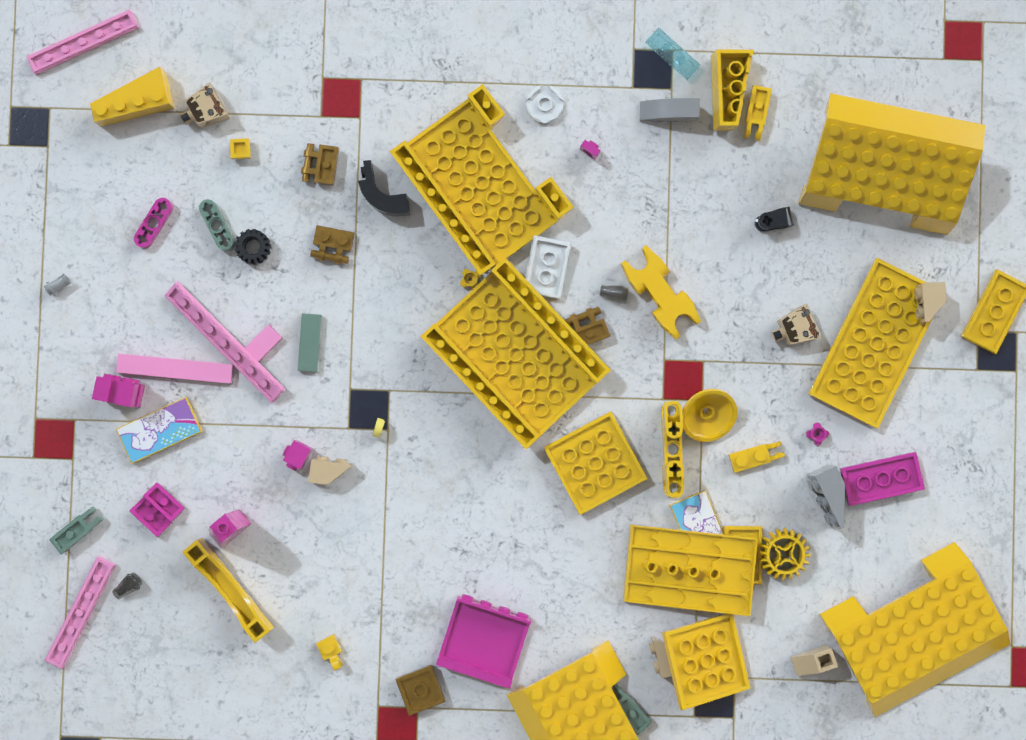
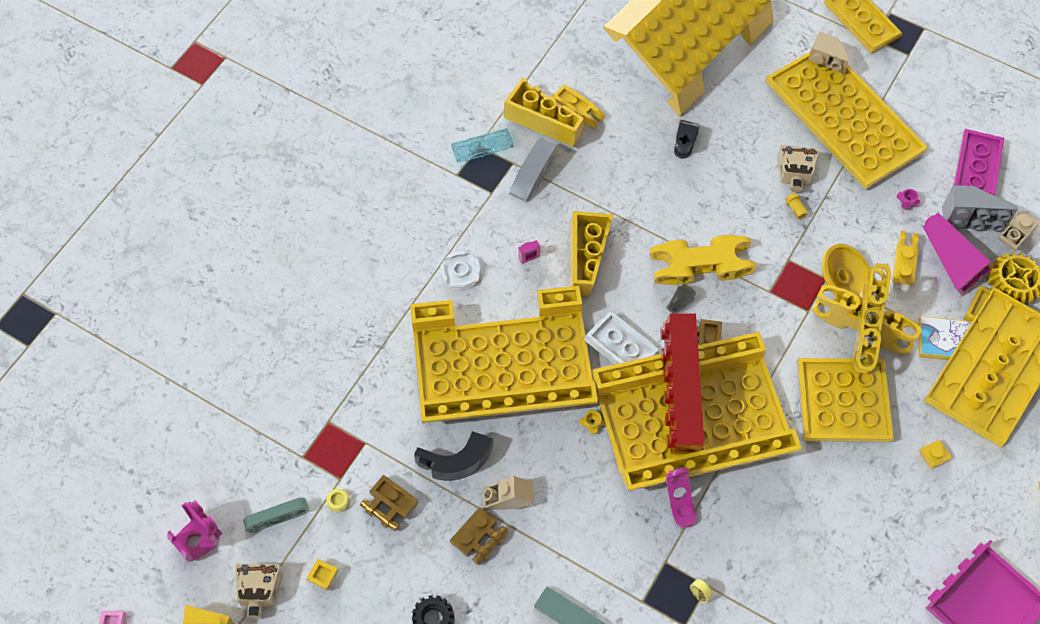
camera: 60 degrees left, 25 degrees down
(224, 33) = (198, 525): none -> dark pink piece
(265, 87) = (276, 515): none -> sand green beam
(302, 125) = (337, 500): none -> light yellow tile
(374, 248) = (508, 494): none -> tan slope
(435, 383) = (682, 507): none -> dark pink piece
(520, 335) = (683, 383): none -> red brick
(587, 552) = (935, 454): none -> yellow plate
(620, 193) = (586, 245): none -> yellow wedge
(674, 451) = (870, 306): none -> yellow piece
(757, 344) = (796, 205): none -> yellow pin
(779, 494) = (959, 257): none -> dark pink slope
(827, 537) = (1018, 231): none -> tan slope

